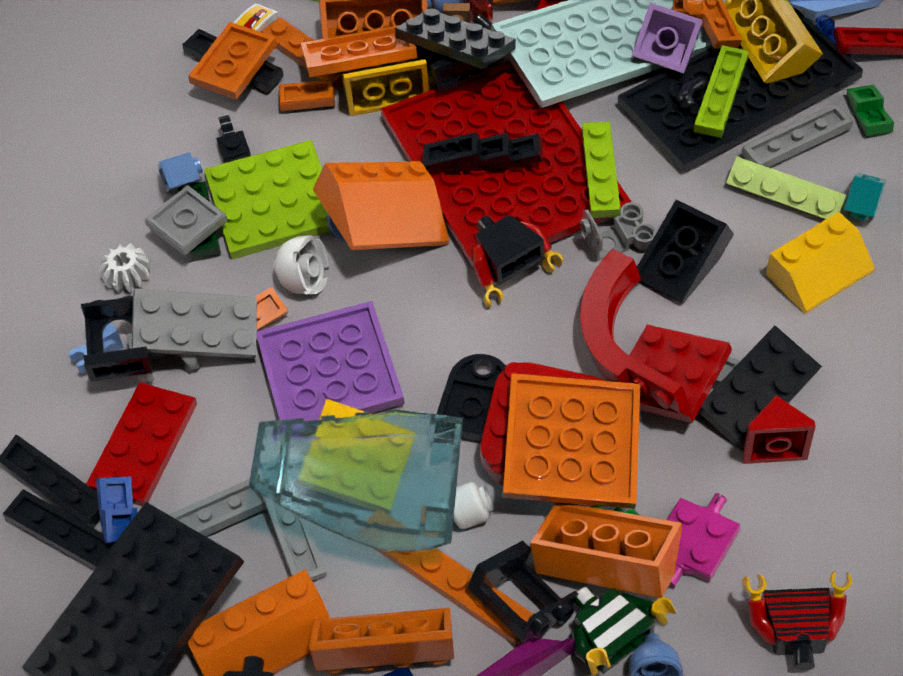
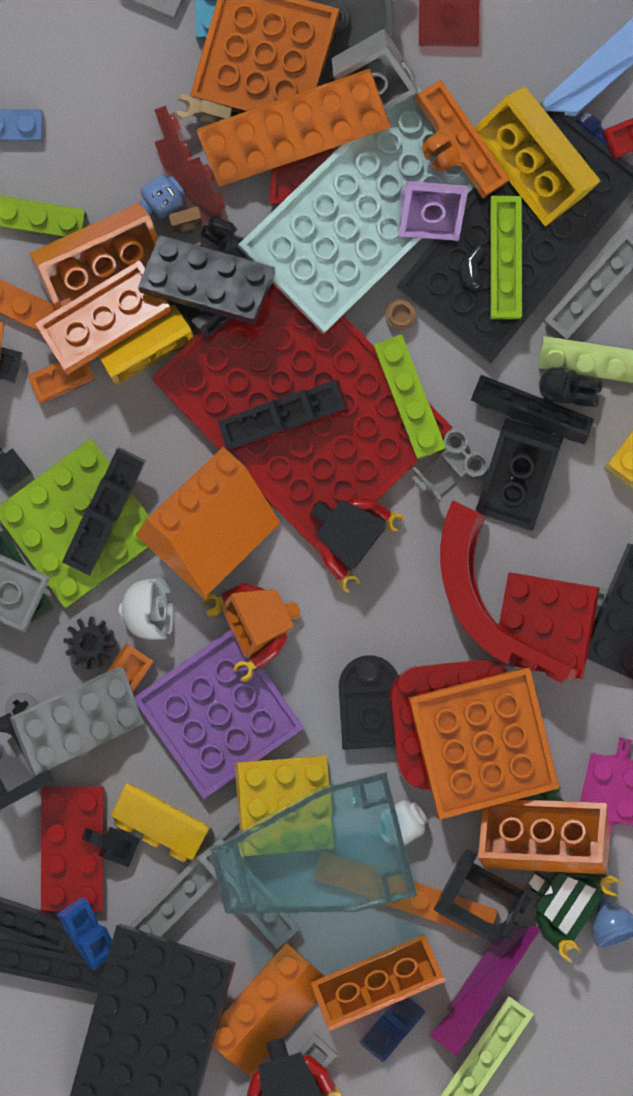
camera: 25 degrees left, 30 degrees up
(182, 446) = (115, 846): none -> black plate
(225, 426) = (159, 822): none -> yellow slope
(238, 278) = (79, 639): none -> black gear
(292, 187) = (104, 511): none -> black slope
(394, 299) = (257, 622): none -> orange torso
(617, 117) = (400, 315): none -> medium nougat plate
(744, 230) = (532, 409): none -> black plate
(747, 196) = (566, 387): none -> black piece

